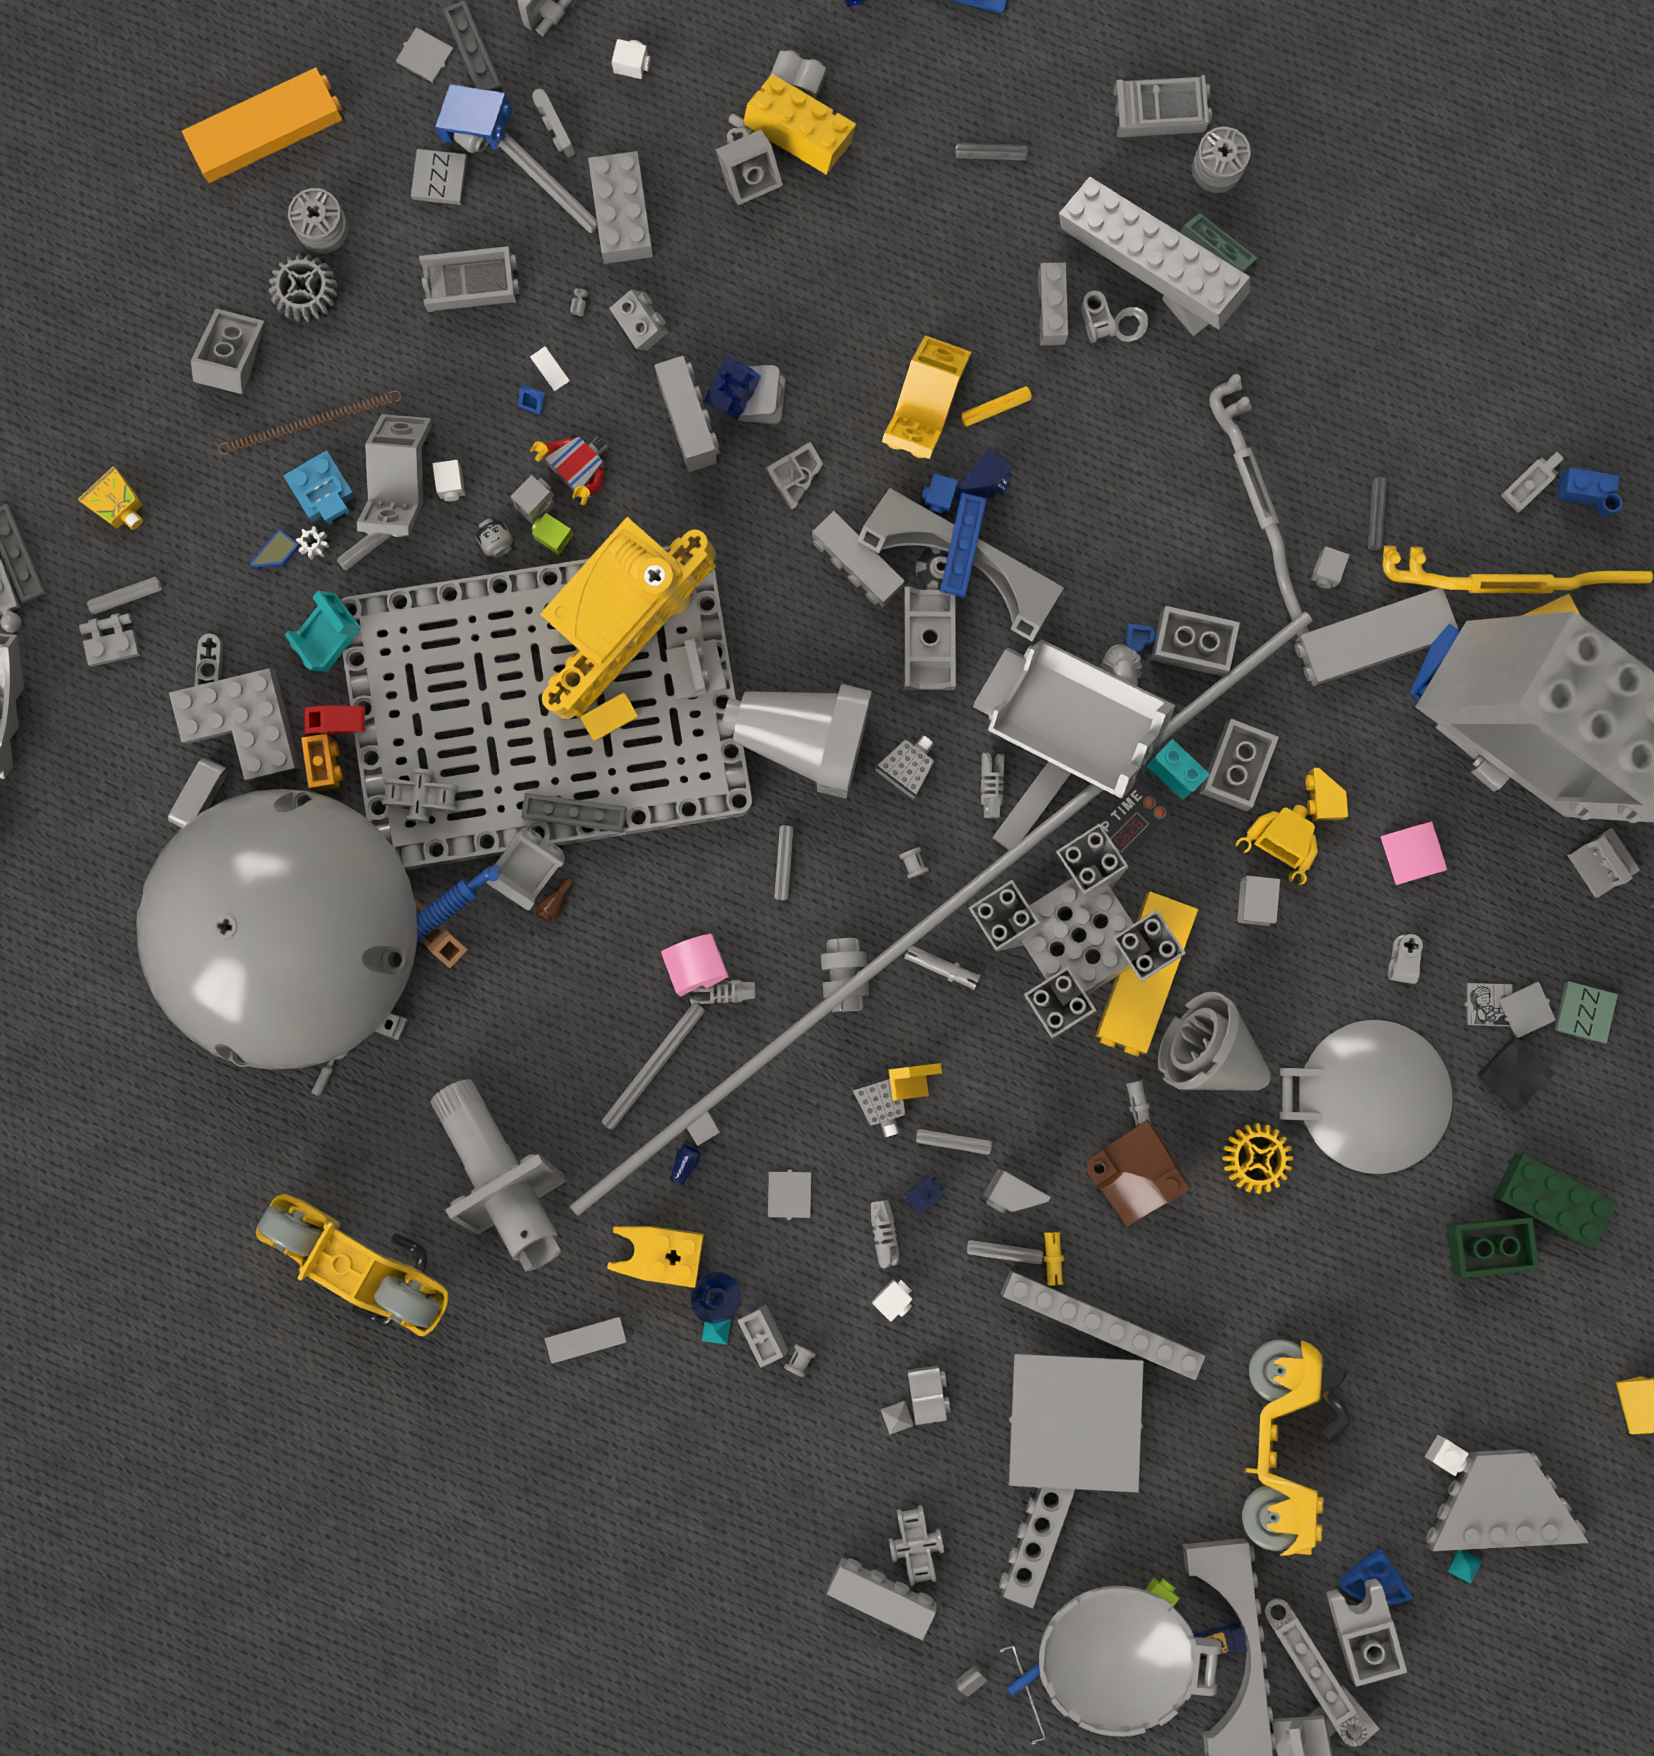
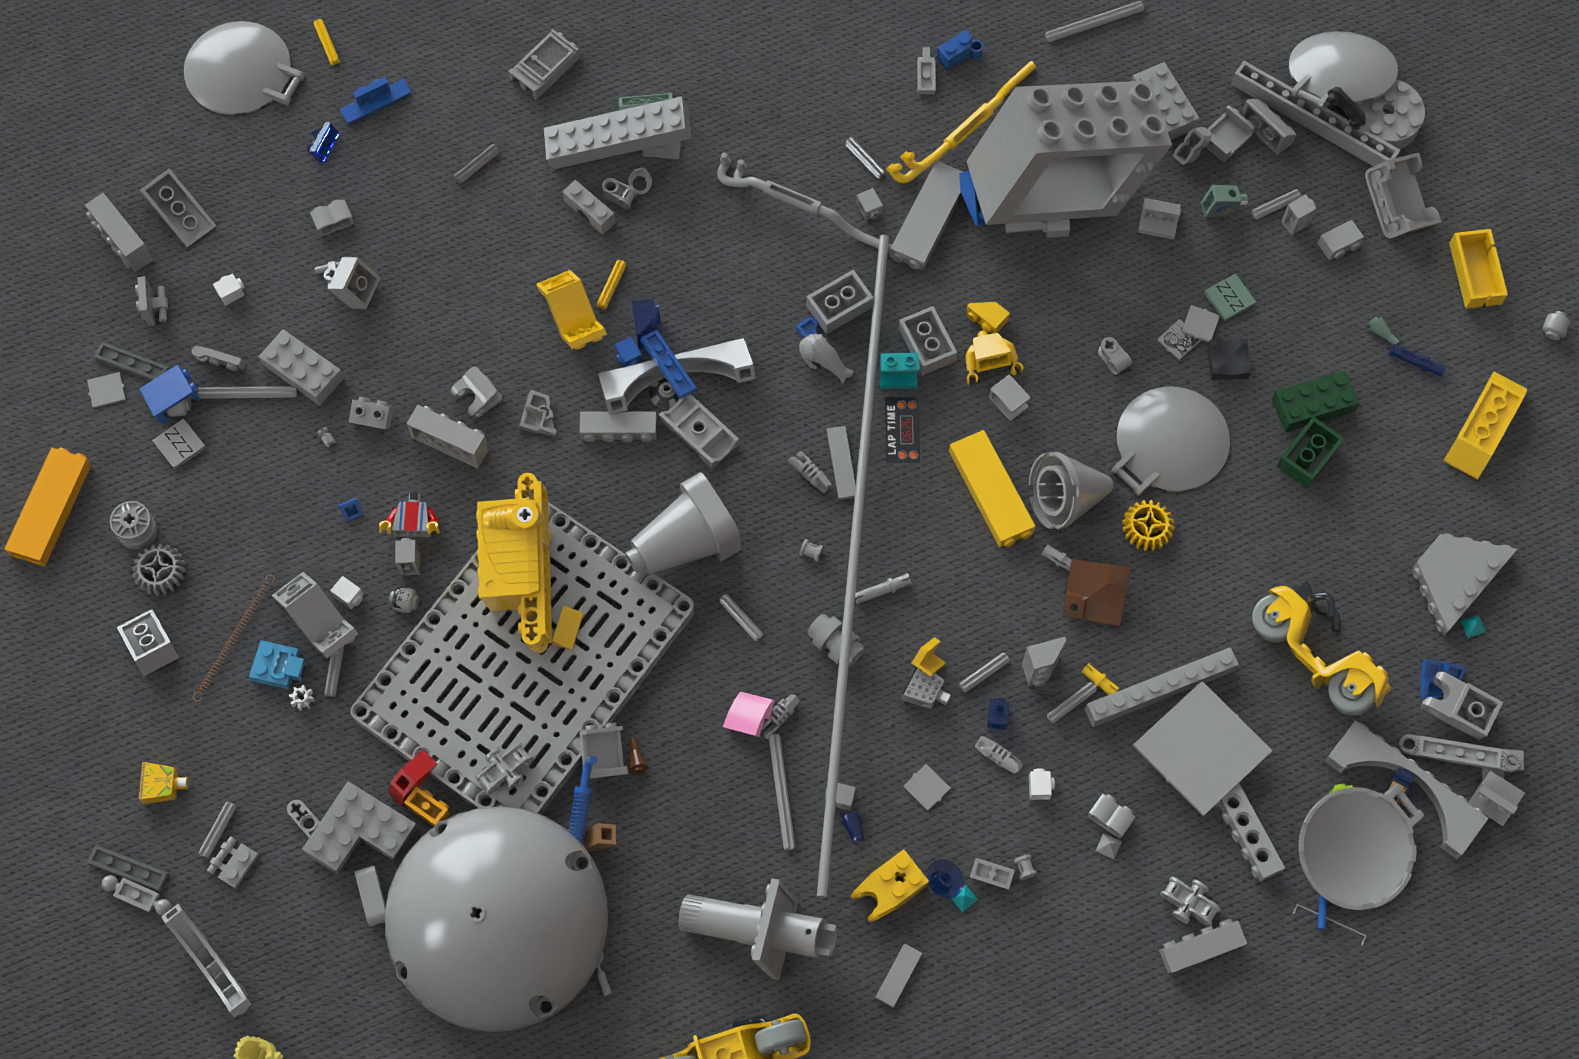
camera: 40 degrees left, 15 degrees down
(276, 551) = (284, 723): olive tile -> none
(324, 633) = (359, 736): teal panel -> none
(397, 1028) = (619, 916): light grey piece -> none
(469, 278) = (251, 479): door -> none
(549, 368) = (344, 486): white sticker -> none
(551, 533) = (434, 567): lime brick -> none
(574, 812) = (599, 696): dark grey tile -> none
(696, 669) = (589, 559): light grey bracket -> none
(732, 388) = (460, 399): clear blue brick -> none
(799, 123) = (358, 238): yellow piece -> none
(907, 766) = (756, 504): light grey torso -> none
(971, 1681) = (1296, 944): light grey slope -> none
(1069, 977) = (957, 526): light grey slope -> none
(1074, 715) = (815, 393): light grey panel -> none
(1213, 170) = (603, 61): light grey wheel -> none
(1414, 853) = (1061, 301): bright pink slope -> none
(1447, 1455) = (1403, 577): white brick -> none

